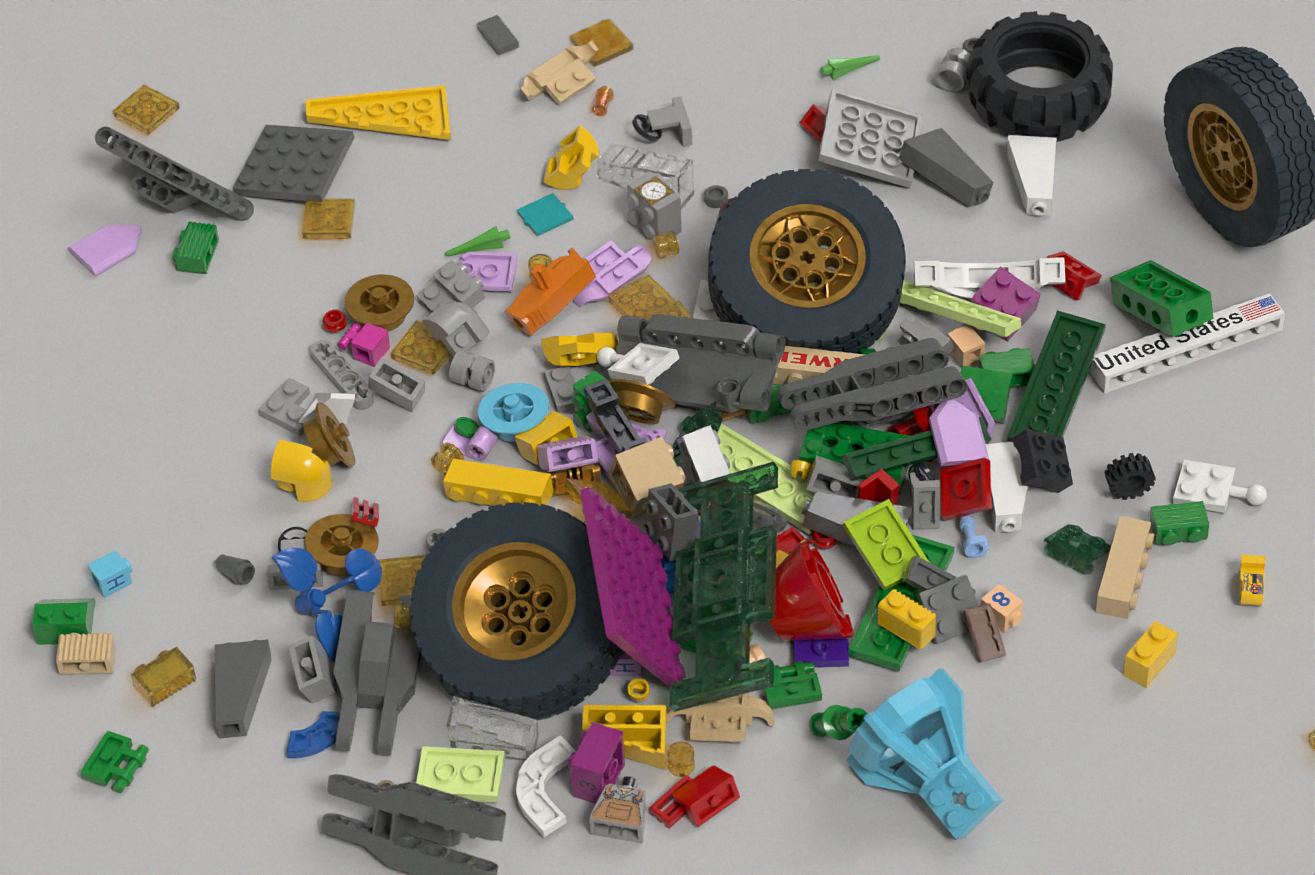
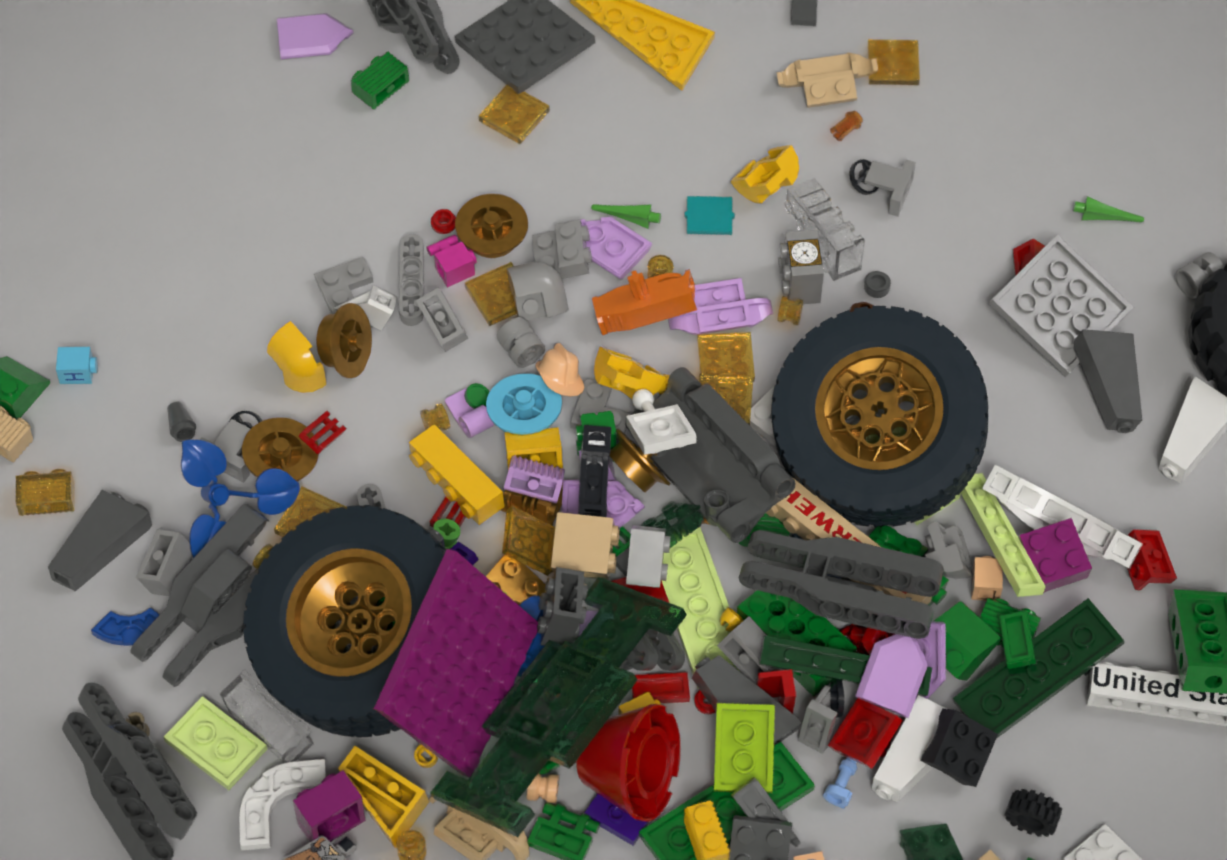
camera: 30 degrees right, 10 degrees up
(521, 371) = (560, 371): none -> light nougat piece
(1026, 367) = (1017, 639): none -> green tile

